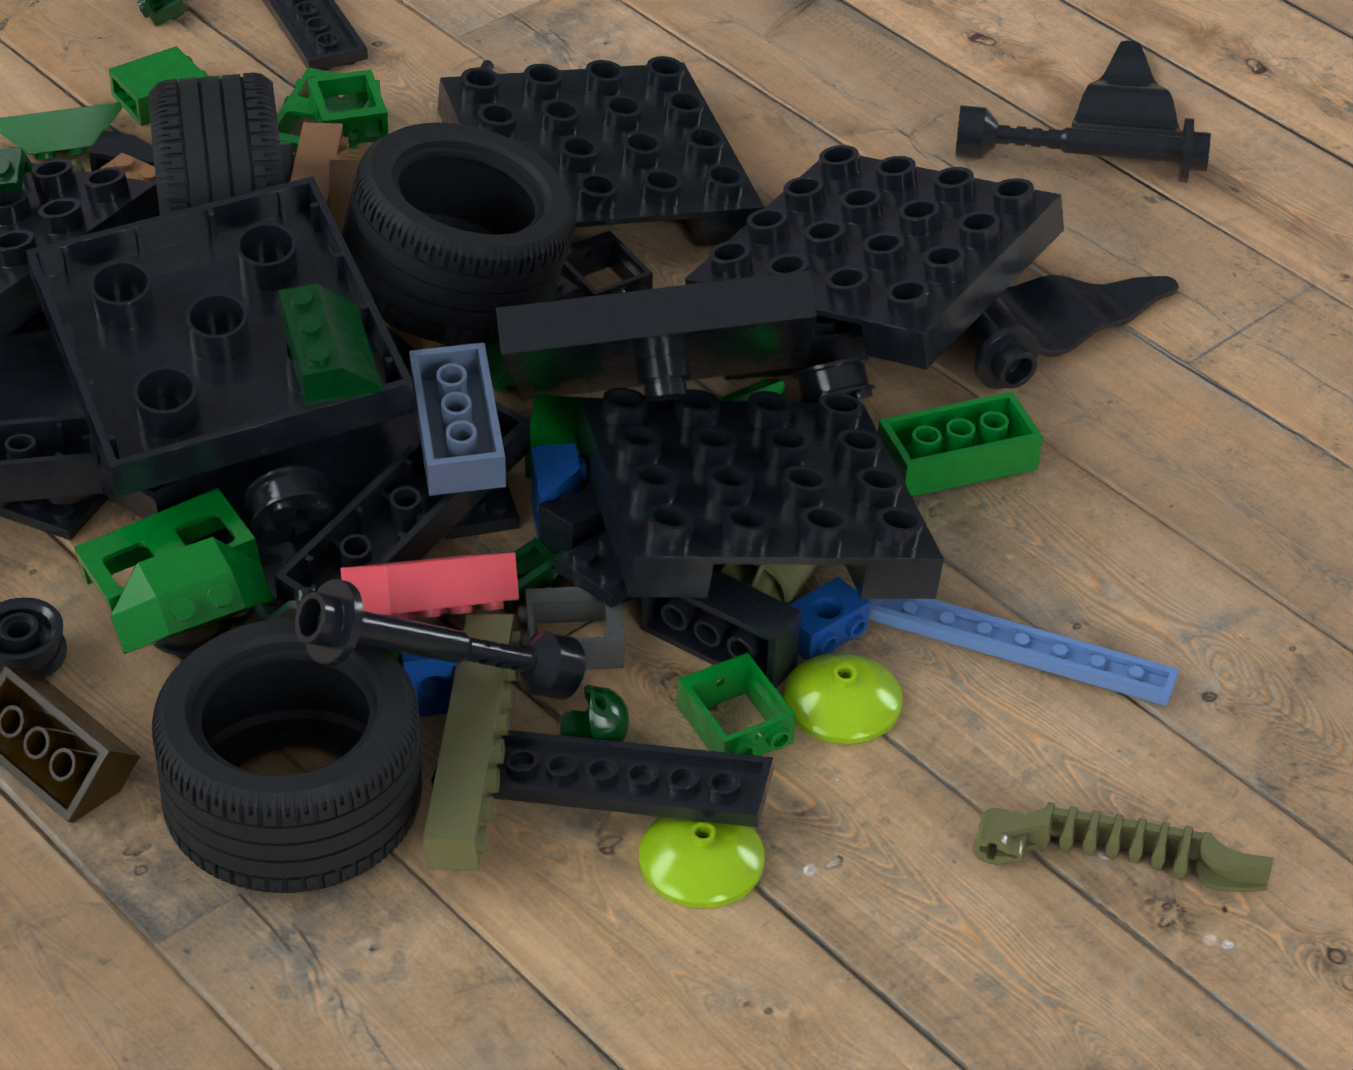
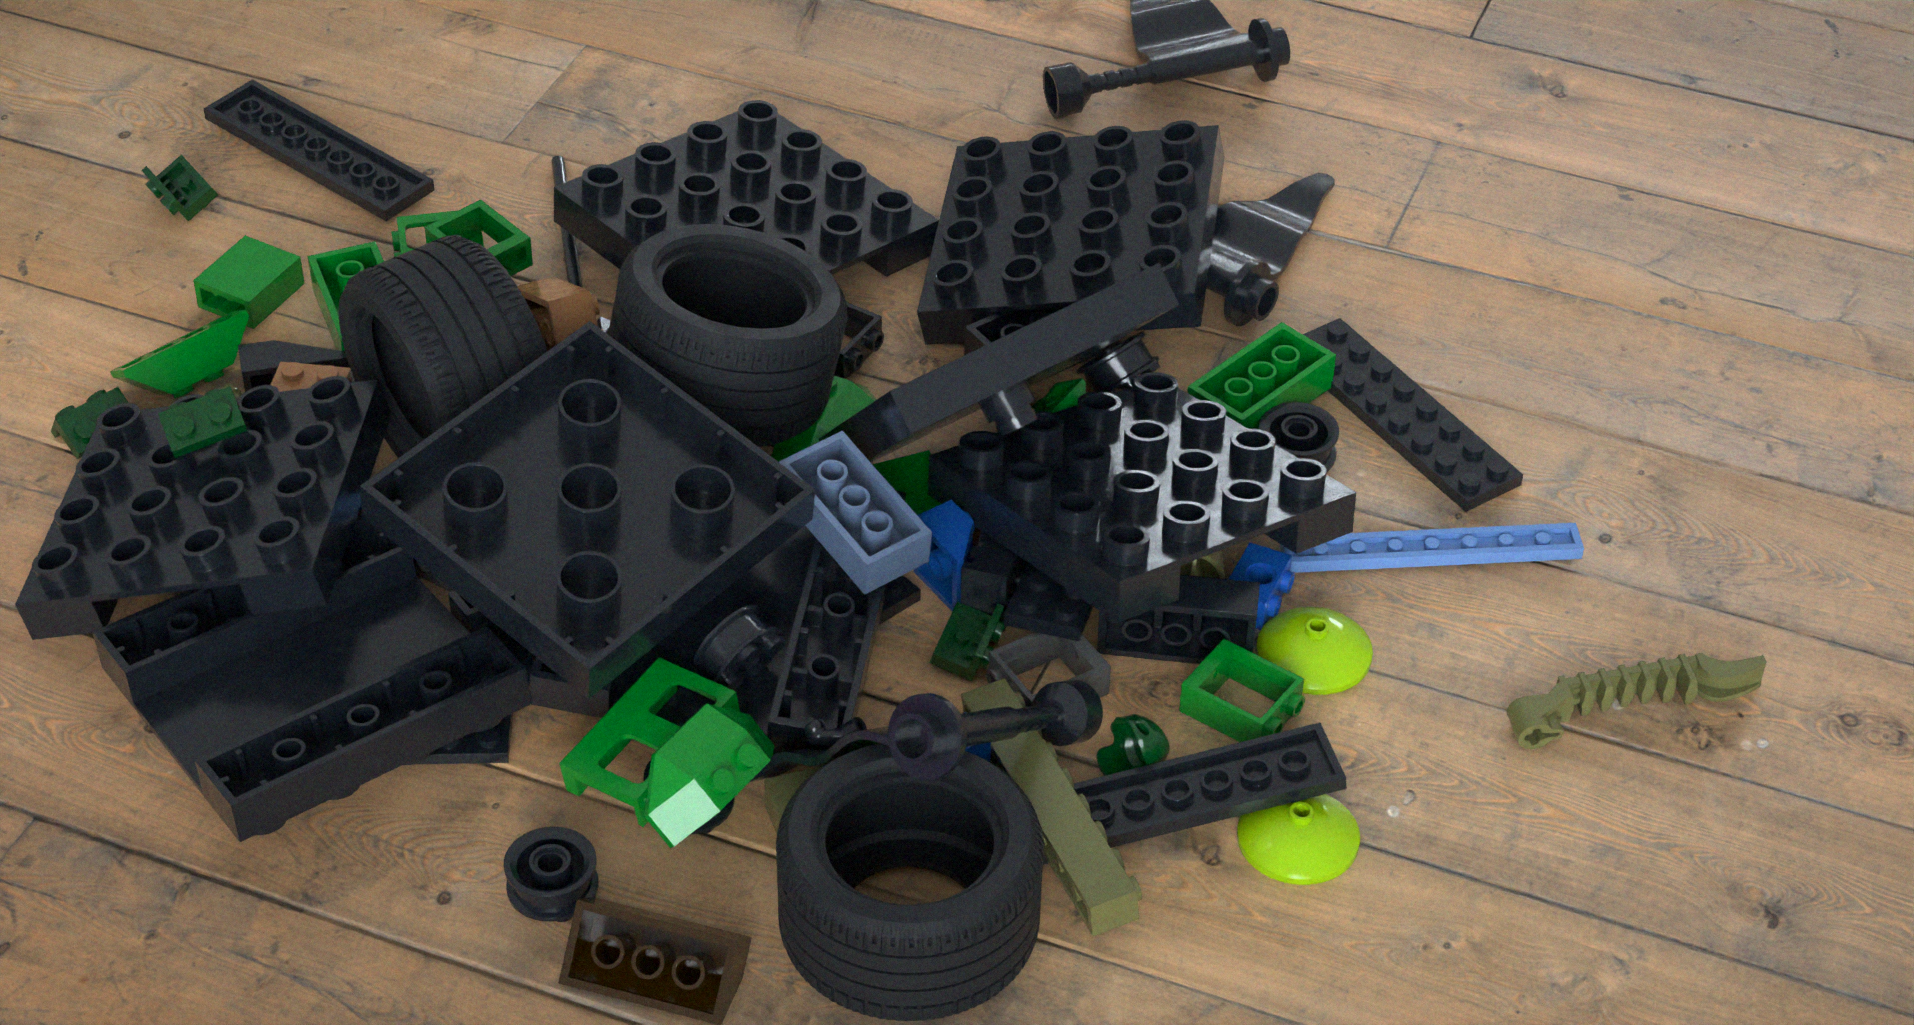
camera: 25 degrees left, 0 degrees up
(327, 345) = (718, 483): dark green slope -> none
(436, 585) = (927, 664): coral brick -> none
(960, 504) = (1303, 431): none -> black wheel
(1092, 522) = (1414, 421): none -> black plate

